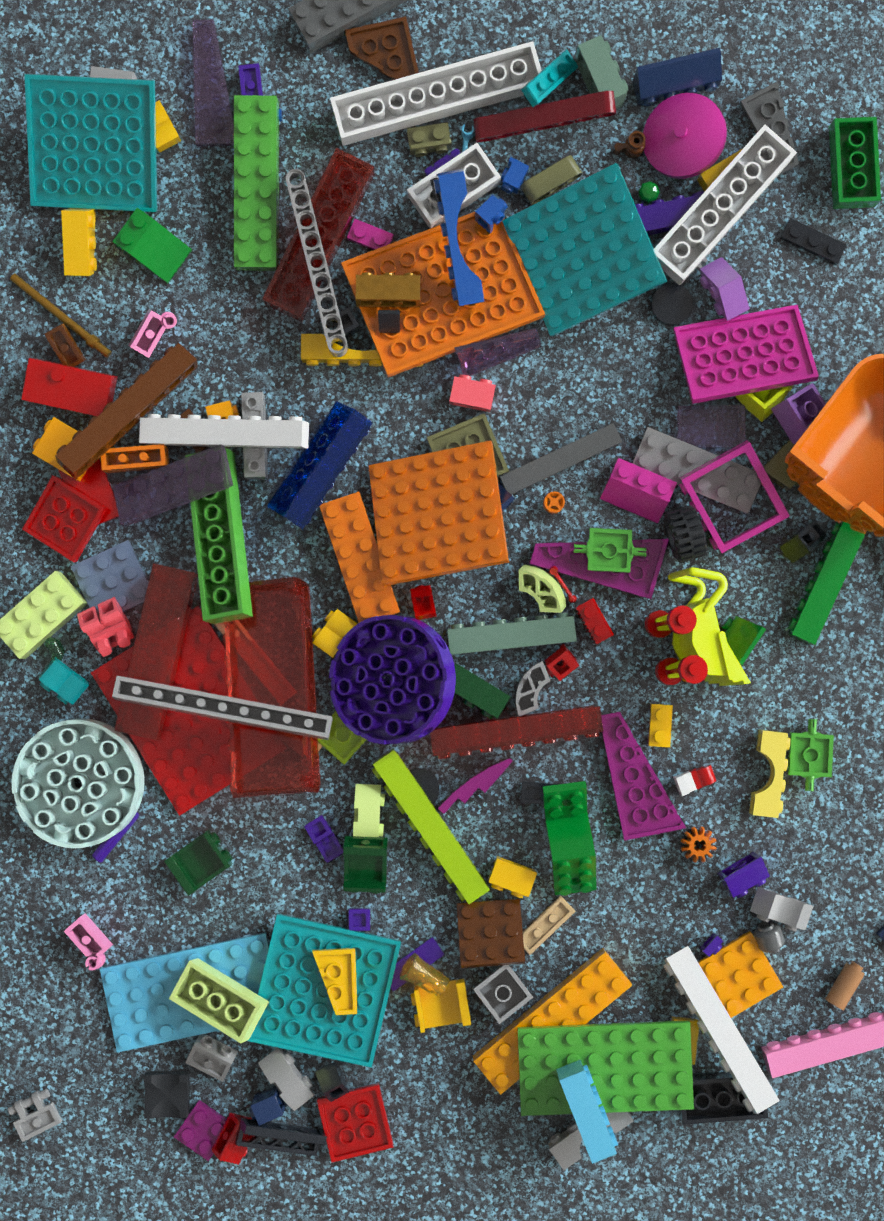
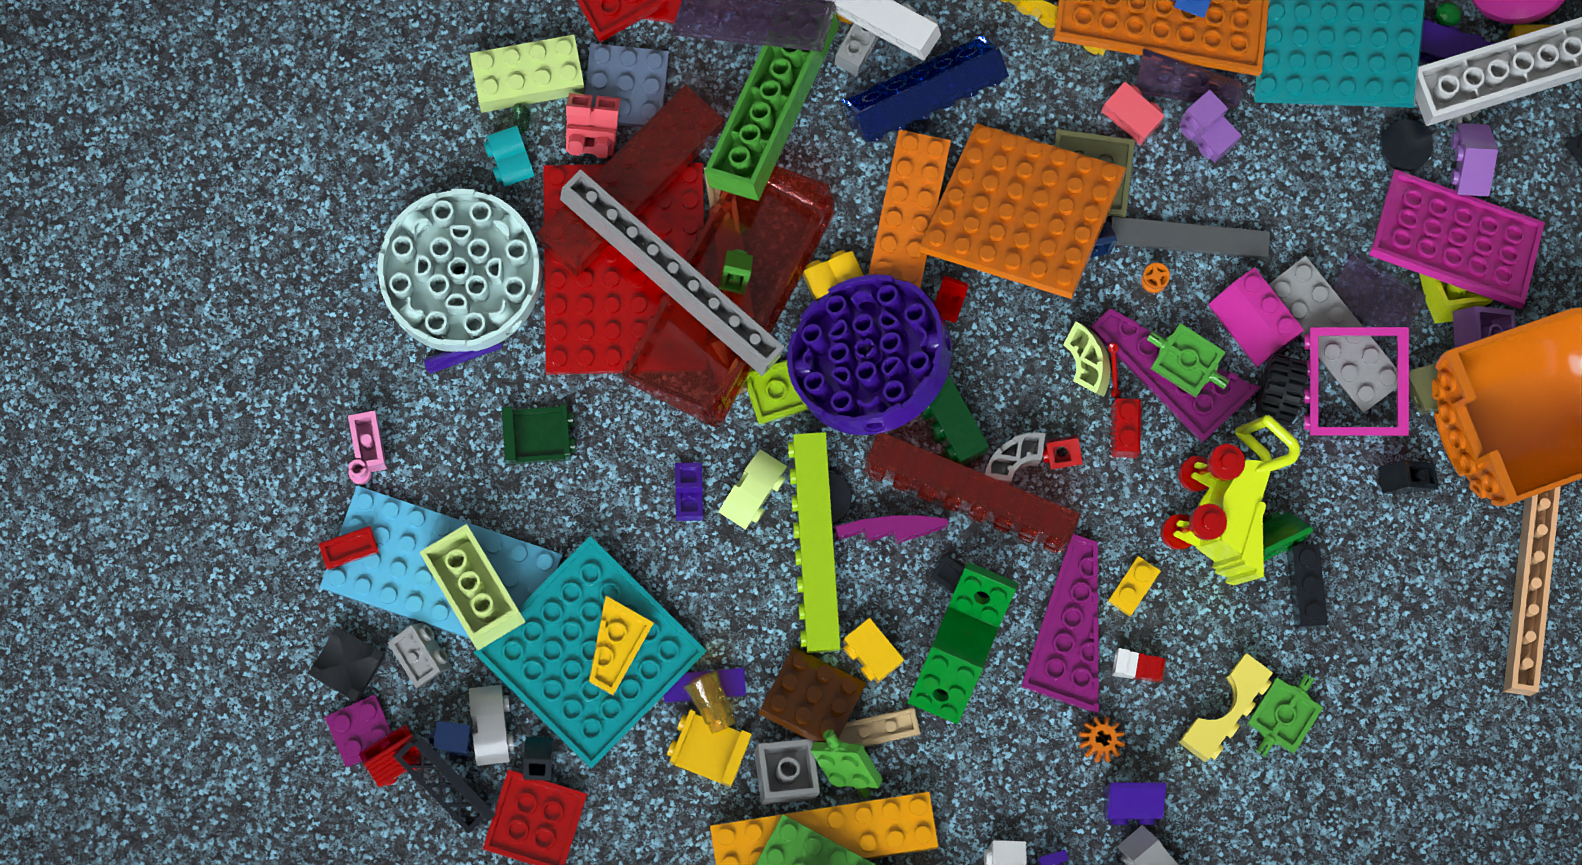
camera: 25 degrees right, 10 degrees down
(37, 1121) = (186, 610): light grey plate -> none
(120, 1017) = (348, 548): none -> red tile
(266, 672) = (736, 271): none -> bright green slope
(359, 919) = (675, 599): dark purple plate -> none
(365, 864) = (719, 541): dark green panel -> none
(511, 635) = (1026, 391): sand green brick -> none
(531, 374) = (1208, 127): none -> medium lavender brick
(539, 968) = (846, 764): none -> bright green plate
(779, 661) = (1307, 587): none -> black brick
(826, 583) = (1409, 537): green brick -> none

